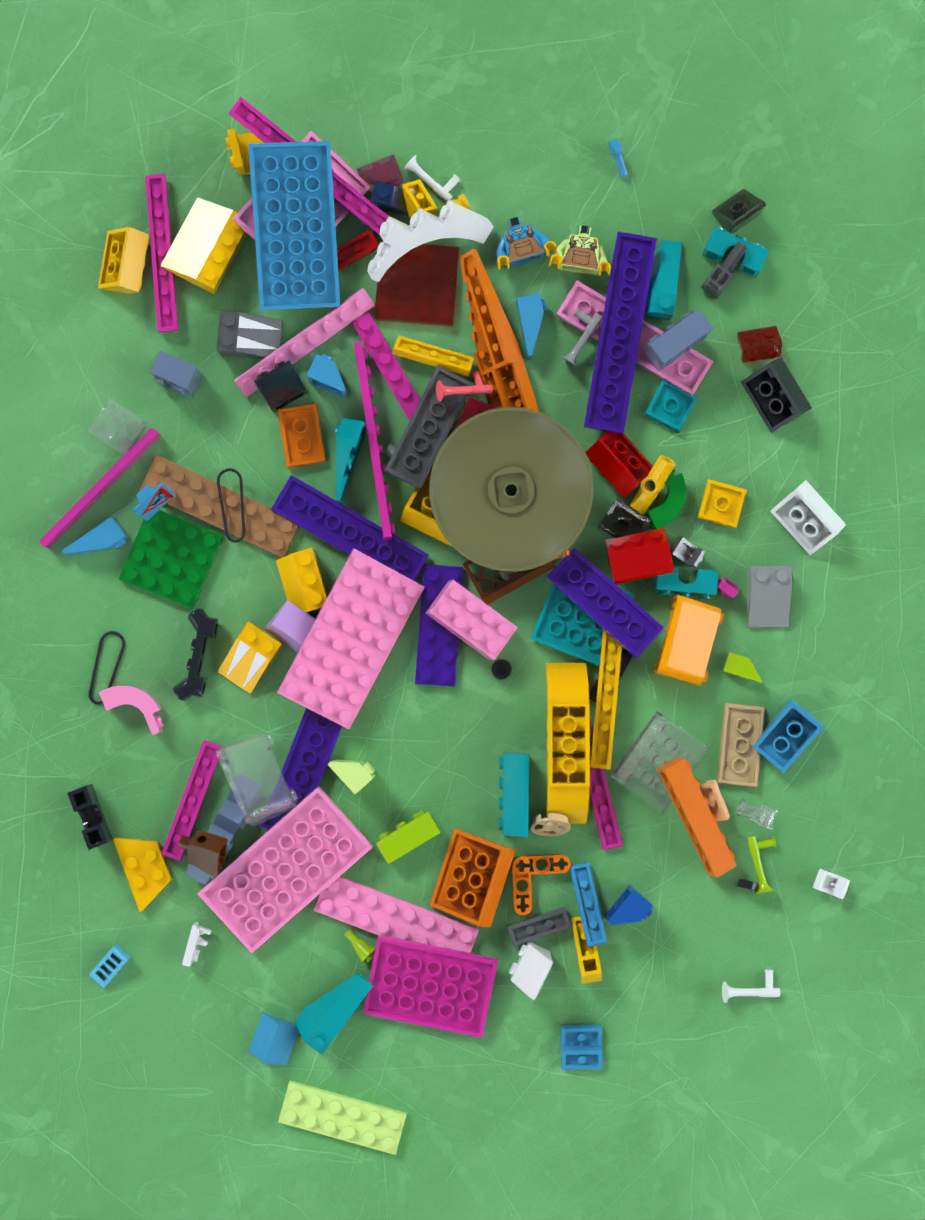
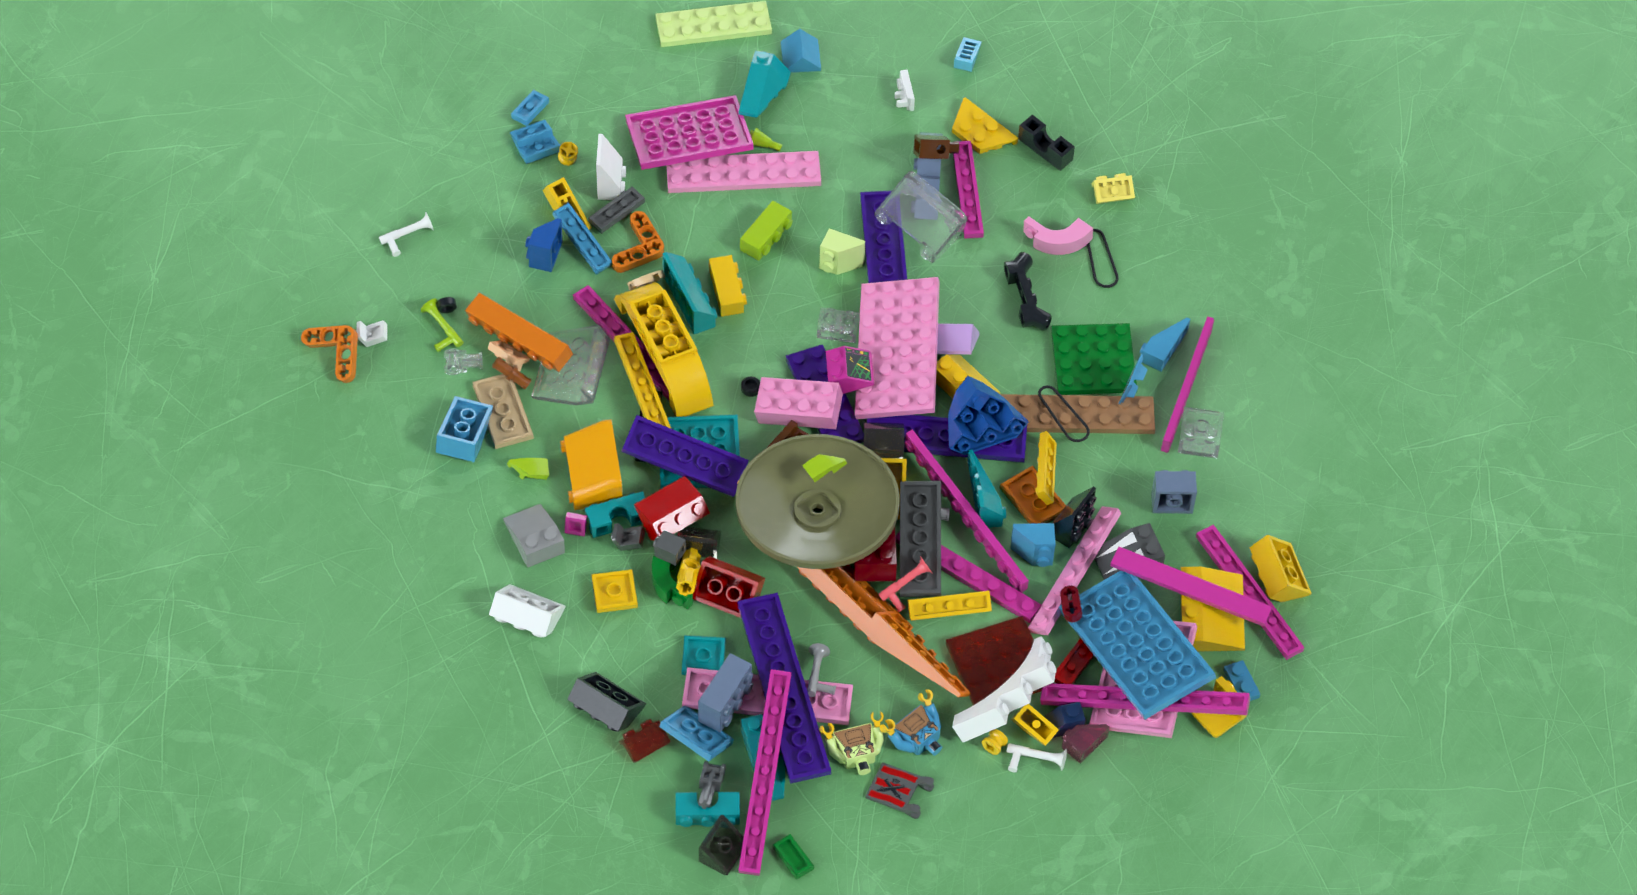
camera: 150 degrees right, 30 degrees down
(52, 737) = (1113, 189): none -> light yellow bracket
(216, 172) = (1241, 679): none -> dark azure plate
(217, 258) = (1191, 586): none -> dark pink tile
(250, 657) = (980, 308): yellow slope -> none
(275, 456) = (1046, 468): none -> yellow plate
(285, 869) = (858, 166): bright pink plate -> none
(312, 526) = (981, 418): none -> blue brick
(325, 295) = (1074, 603): none -> dark red beam
(393, 693) = (842, 327): none -> clear brick
(408, 631) = (850, 368): none -> dark pink slope
(410, 548) = (885, 439): none -> clear smoke slope
(472, 878) = (693, 221): orange slope -> none
(473, 789) = (727, 285): none -> yellow brick
(492, 519) = (823, 464): none -> lime slope
(530, 314) = (877, 675): dark azure slope -> none
(557, 1015) = (569, 149): none -> yellow wheel
(564, 205) = (896, 787): none -> dark grey flag
(570, 1089) = (530, 107): none -> dark azure plate
(616, 149) = (868, 848): dark azure bar -> none
(662, 512) = (669, 547): none -> dark grey brick
(674, 255) = (765, 773): none -> dark pink plate
(680, 180) = (793, 856): none -> green tile
(720, 776) = (511, 373): none -> dark orange pin
(725, 334) = (703, 740): none -> dark azure tile
(866, 884) = (337, 340): none -> orange beam

